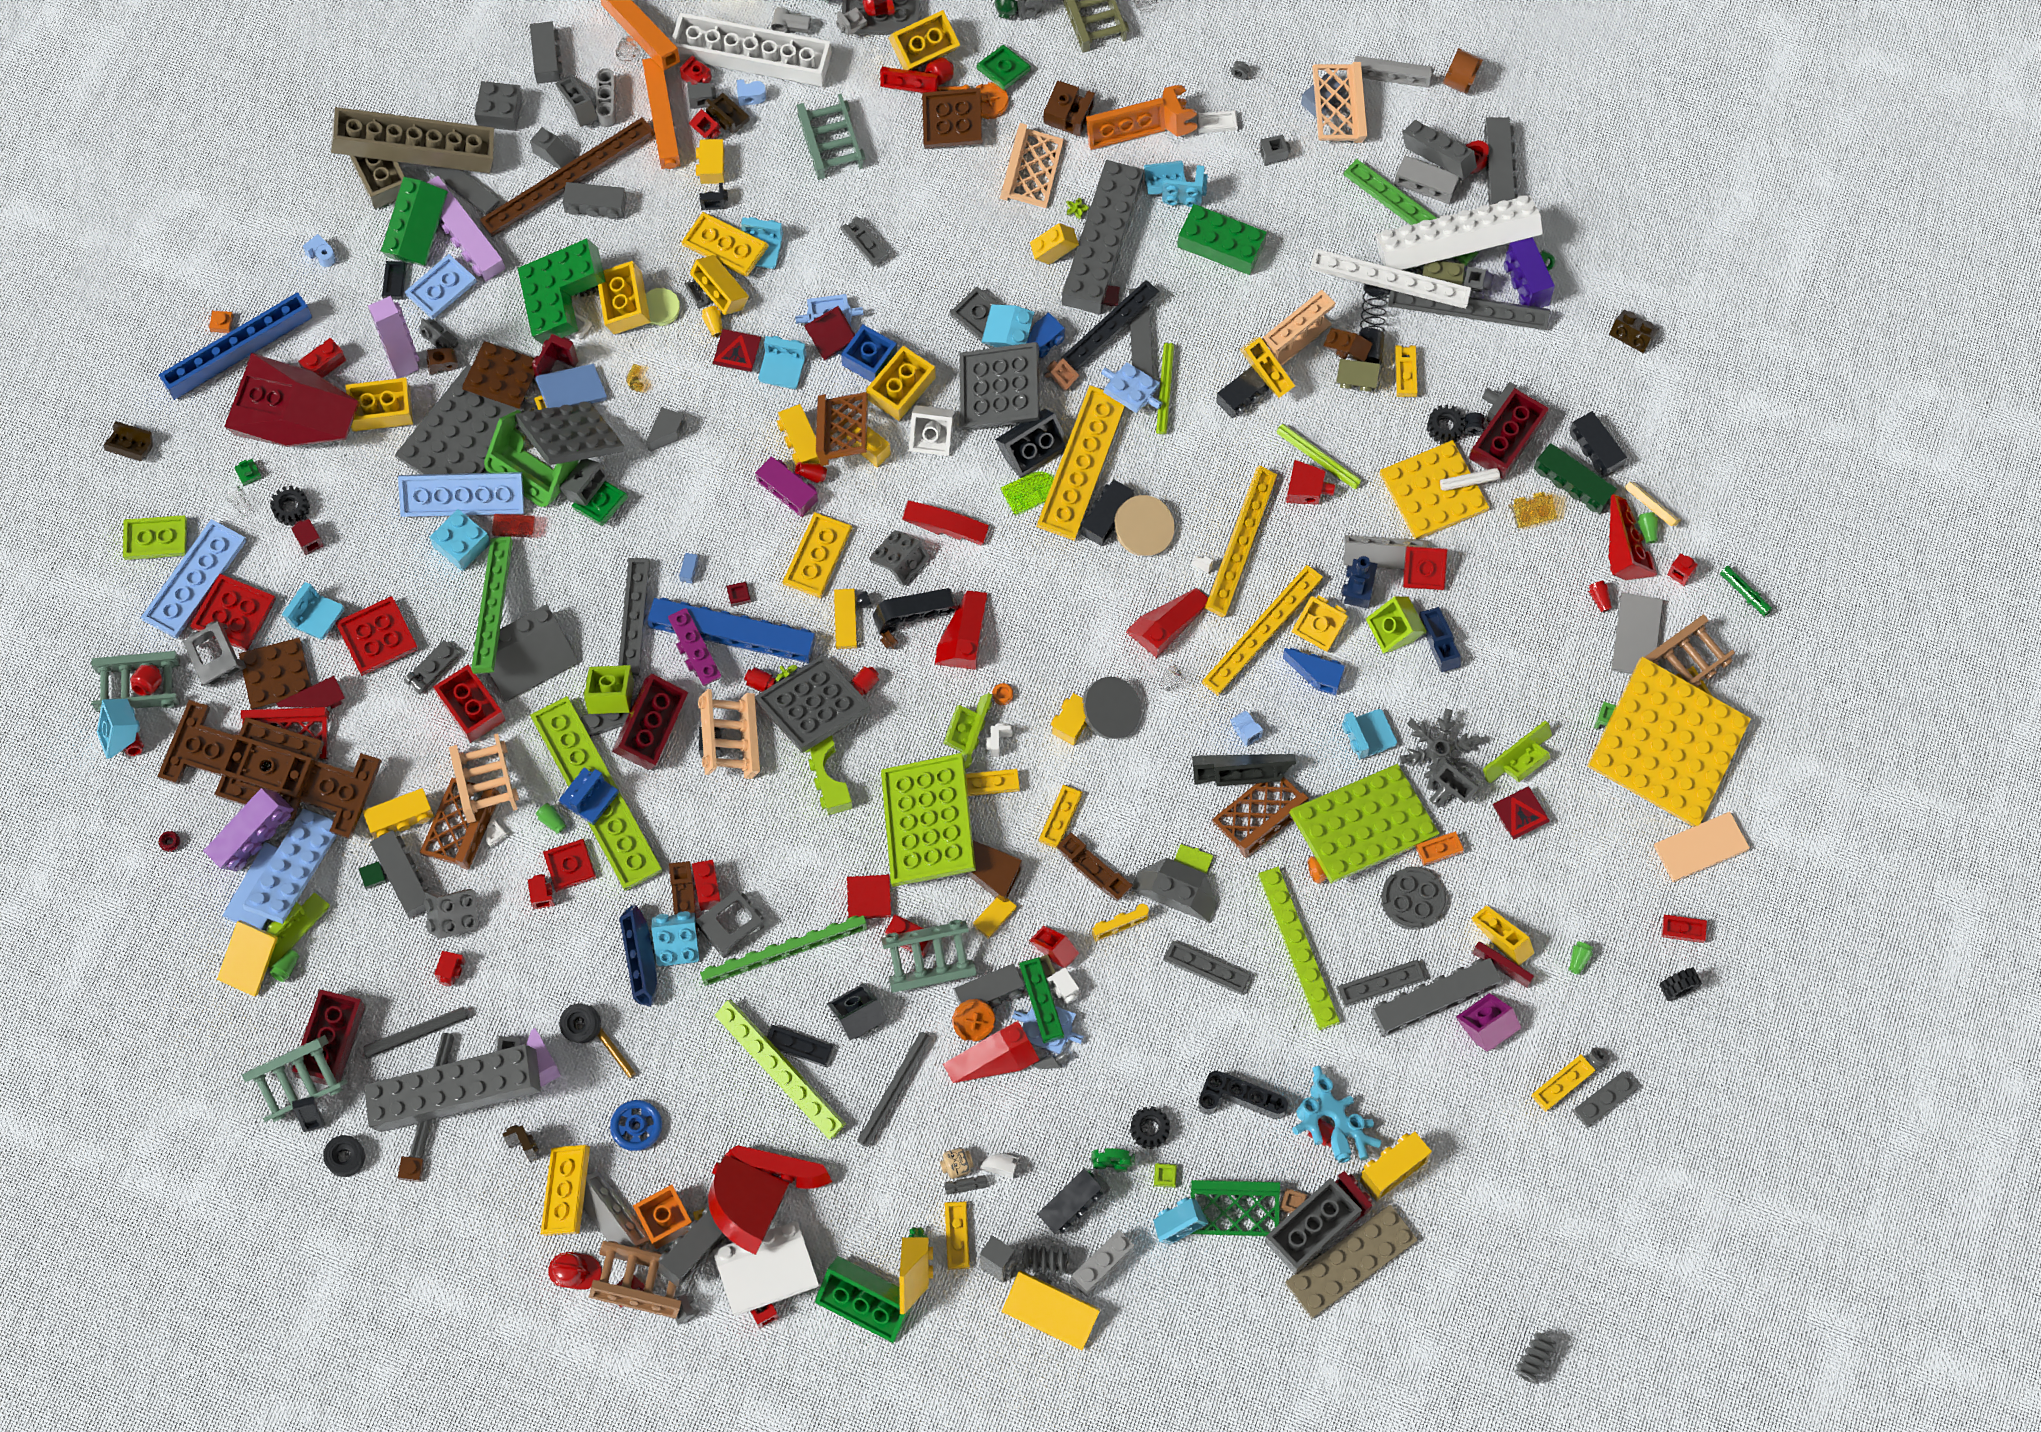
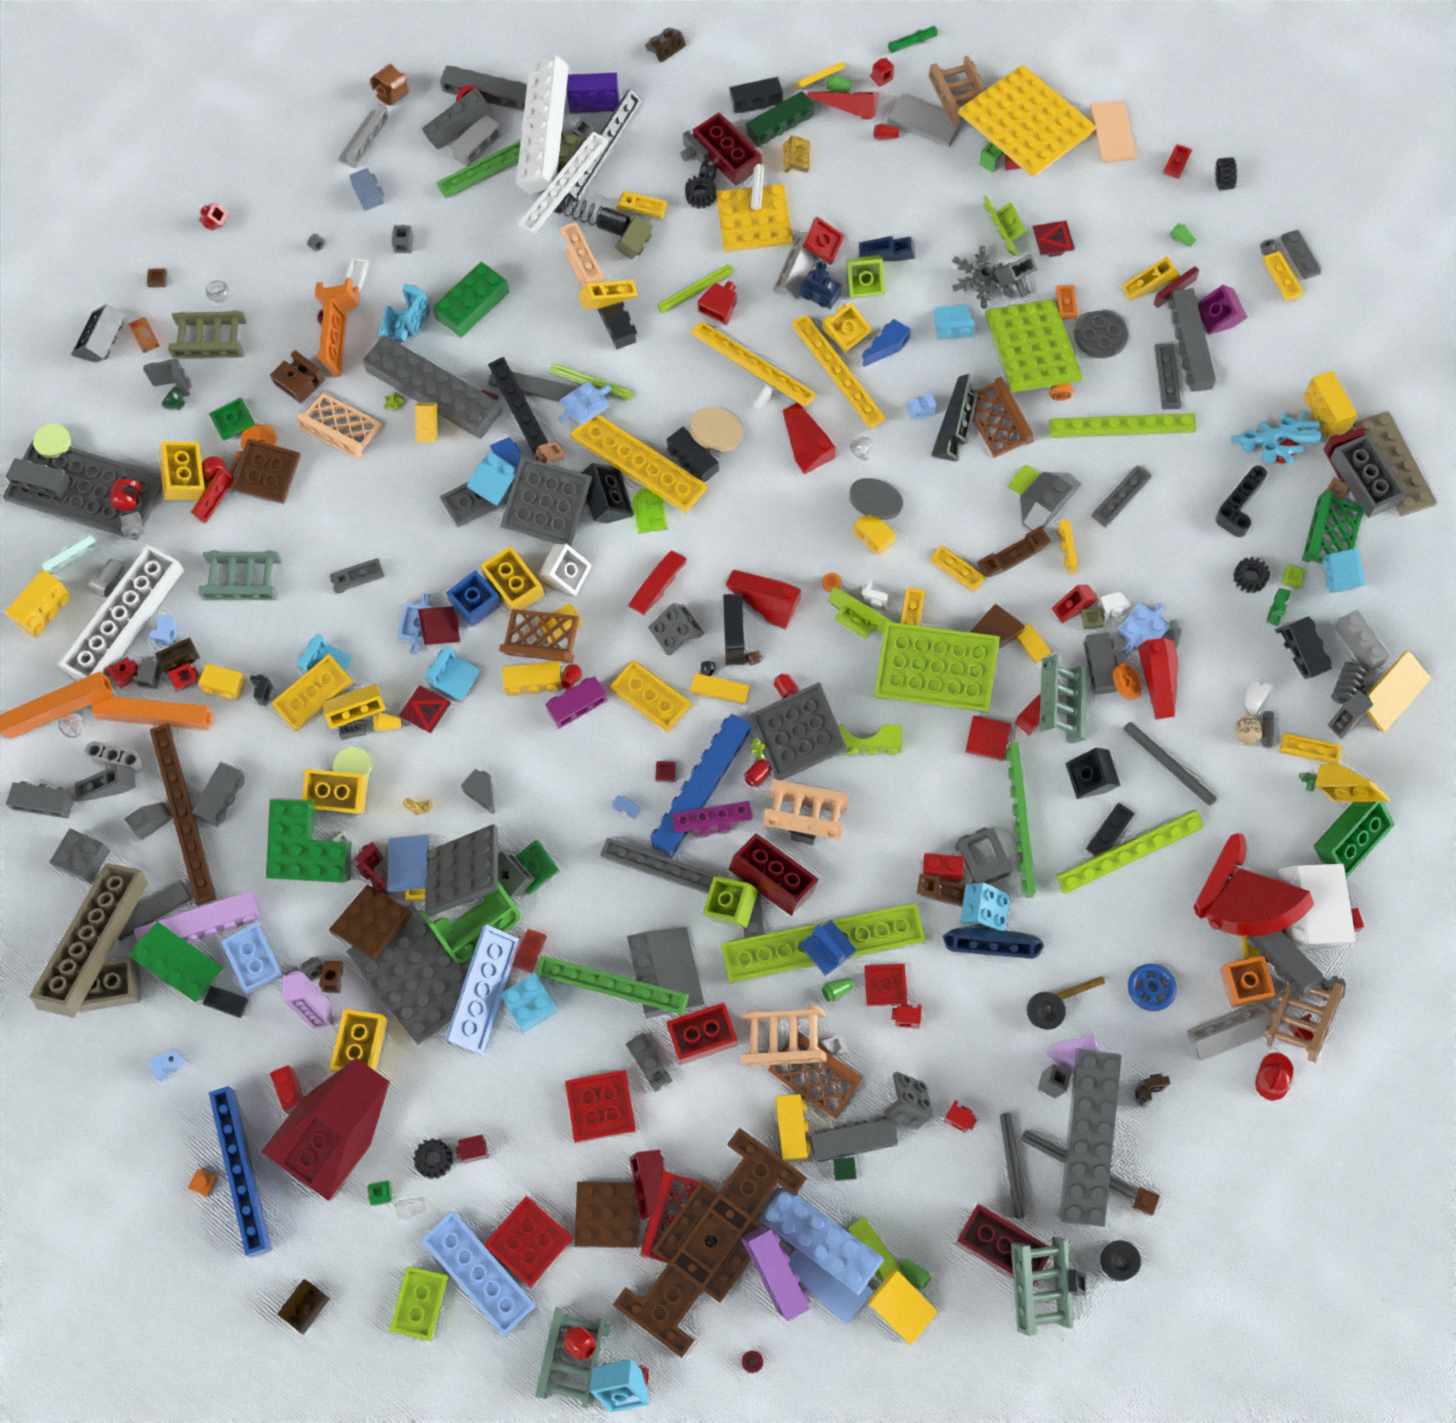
camera: 70 degrees left, 0 degrees up
(221, 667) = (589, 1268): window -> none
(312, 612) = (558, 1160): medium azure bracket -> none
(565, 1190) = (1202, 1063): yellow tile -> none
(1041, 1000) = (1124, 622): green tile -> none
(1347, 344) = (608, 233): reddish brown brick -> none
(1355, 105) = (385, 166): light nougat fence -> none

